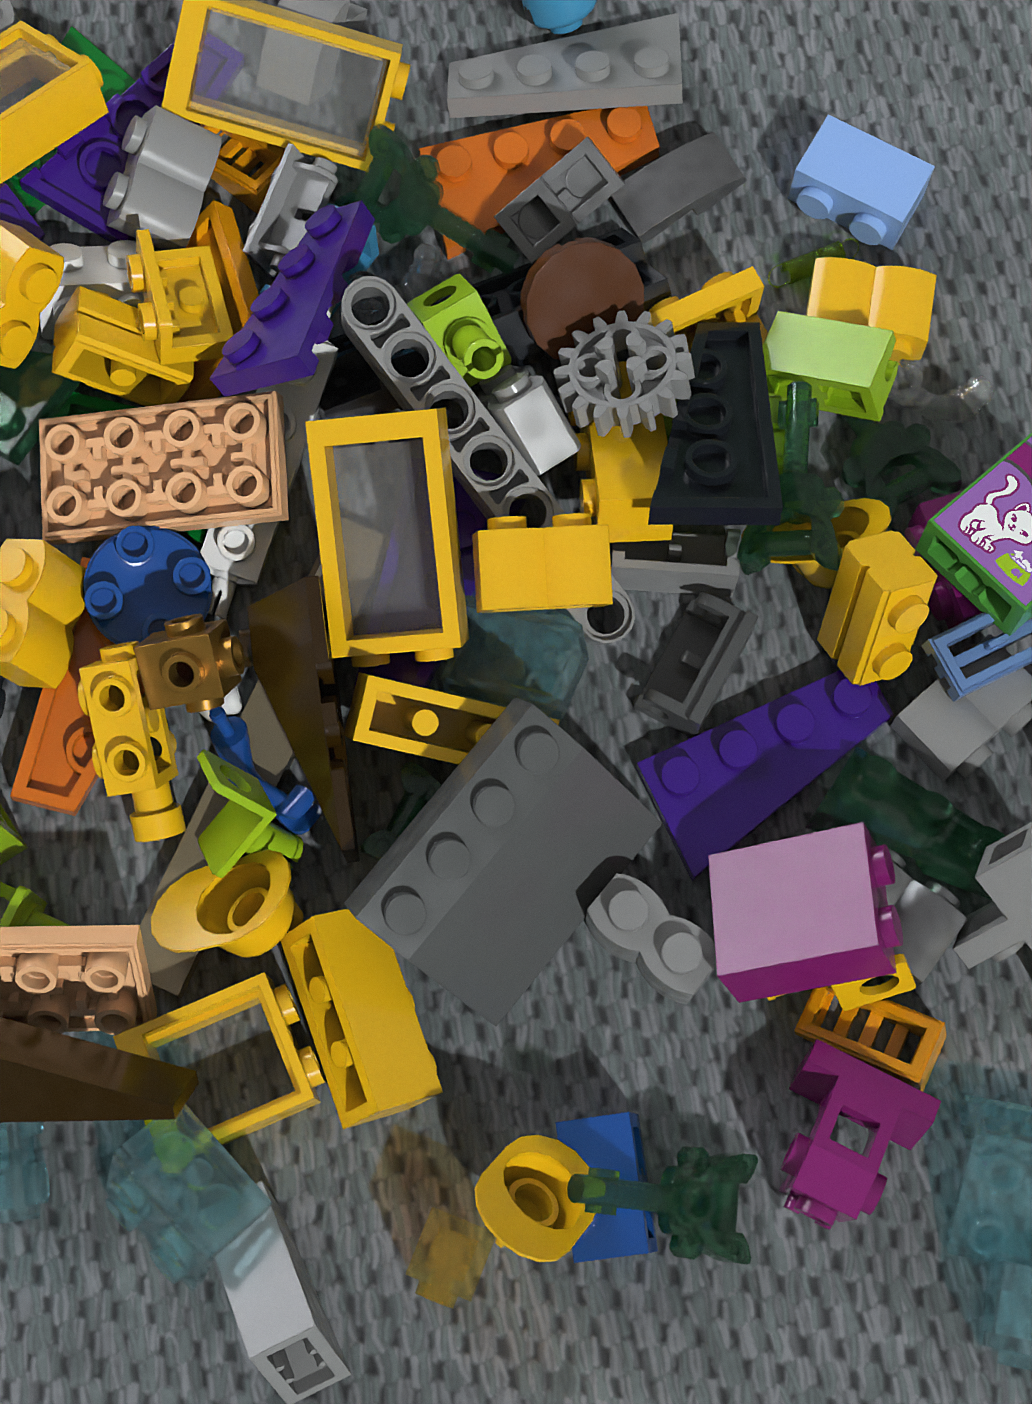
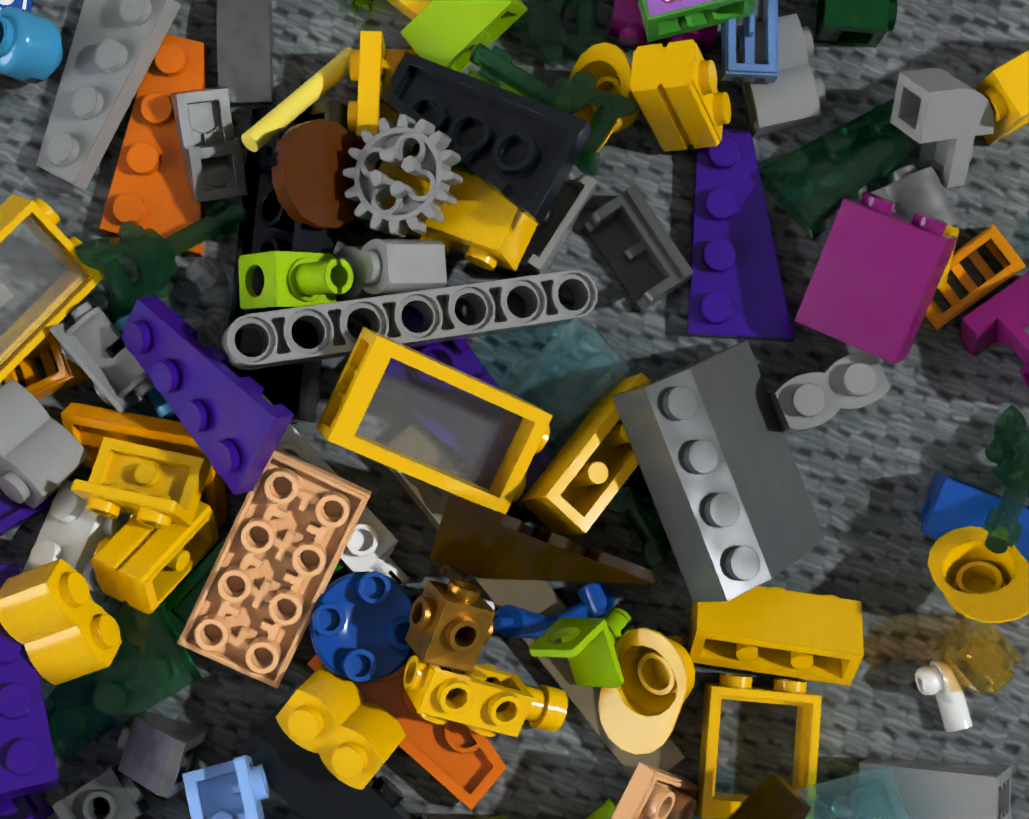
camera: 60 degrees left, 10 degrees up
(395, 1254) = (942, 682): none -> white arm
(542, 566) = (524, 322): yellow brick -> none
(643, 250) = (297, 102): none -> light yellow bar

